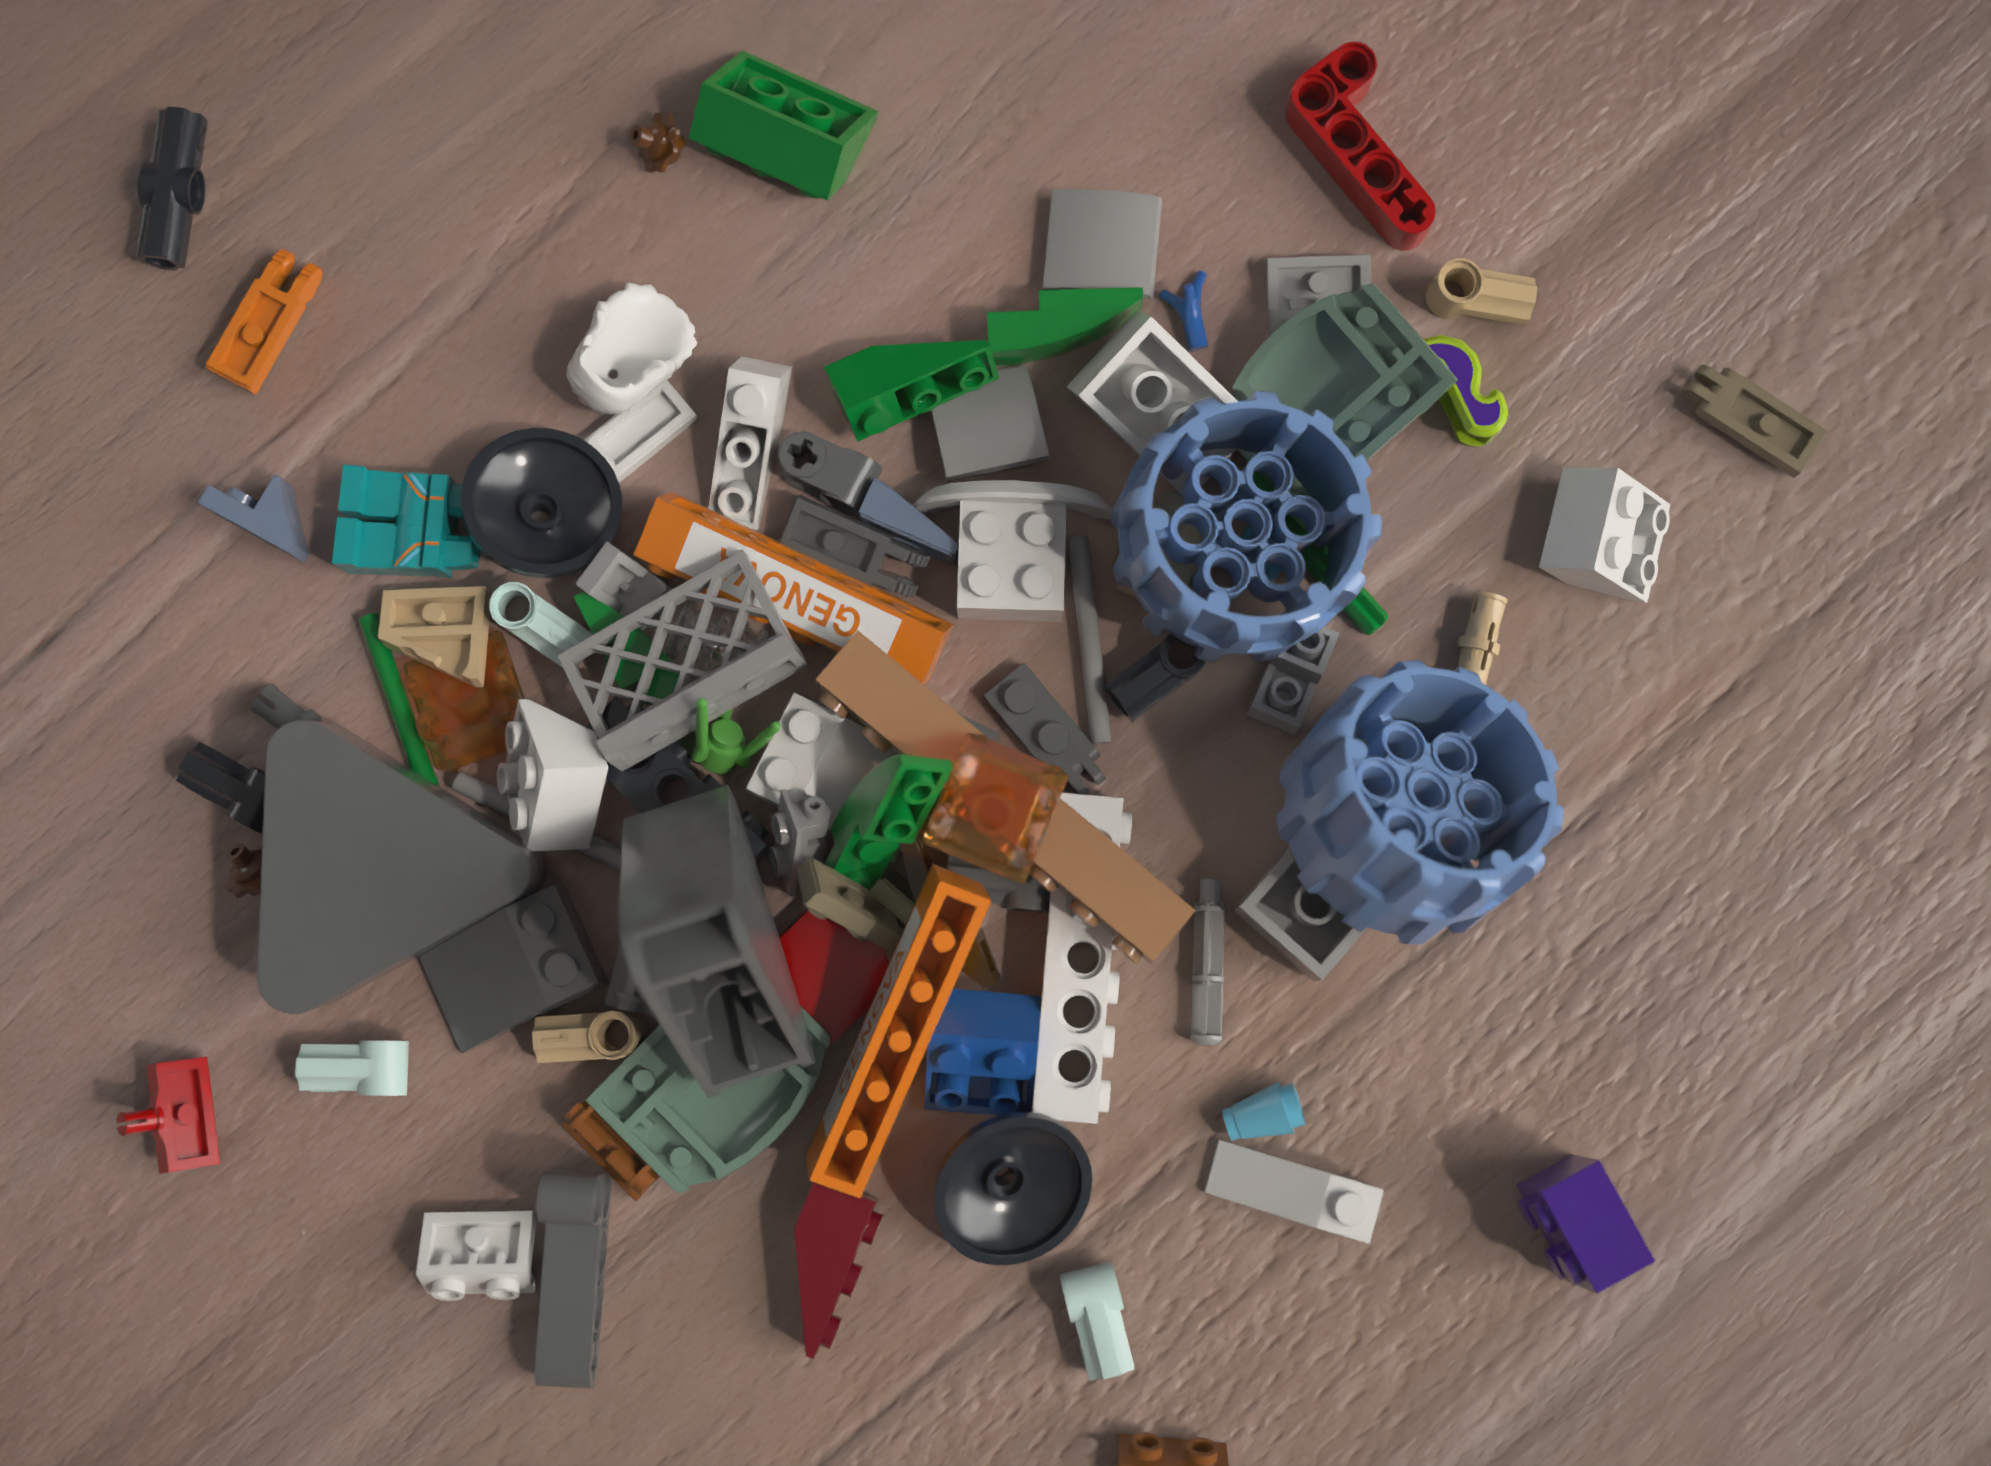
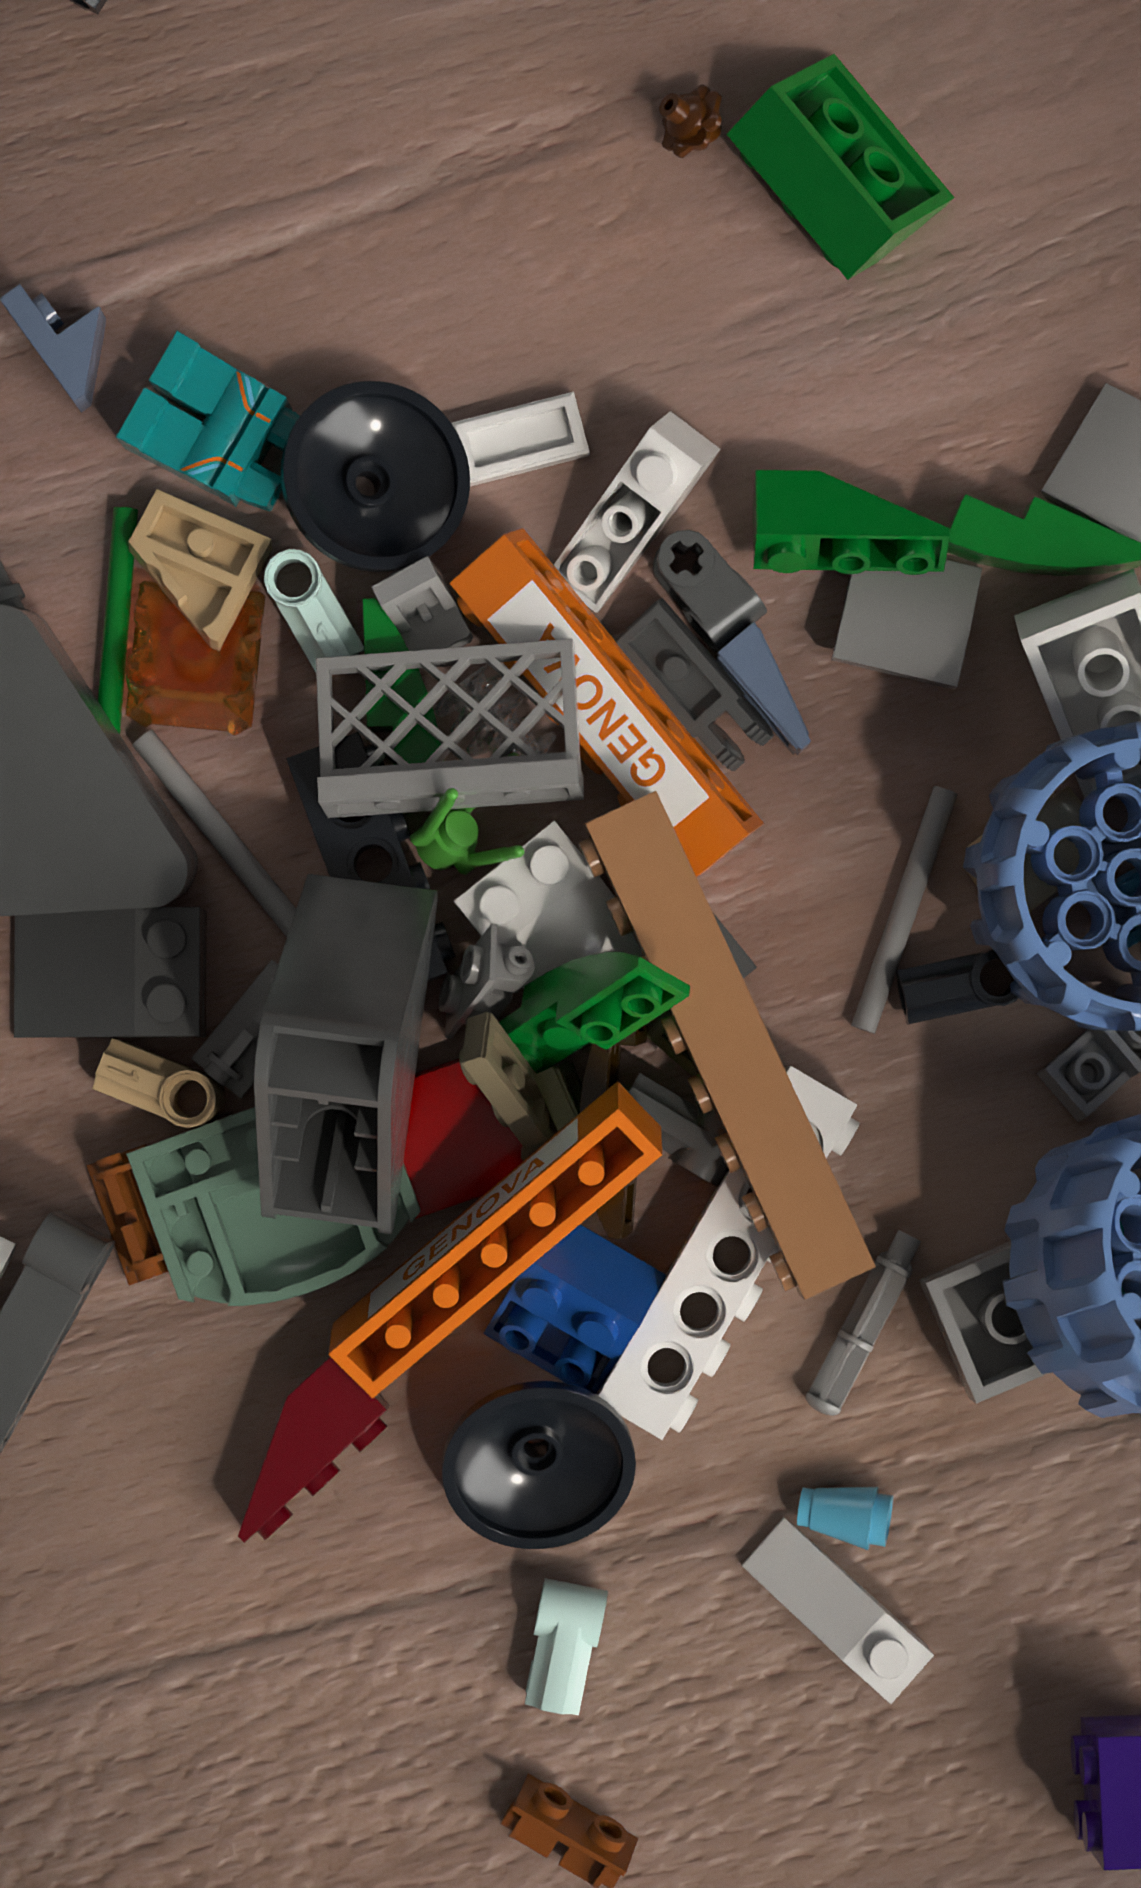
camera: 20 degrees right, 5 degrees up
(263, 323) = (156, 122): orange hinge -> none
(551, 779) = (248, 790): white slope -> none
(640, 338) = (570, 344): white piece -> none
(995, 807) = (714, 1056): clear orange slope -> none
(1012, 544) = (869, 766): white piece -> none
(1044, 726) = (808, 986): dark grey hinge -> none

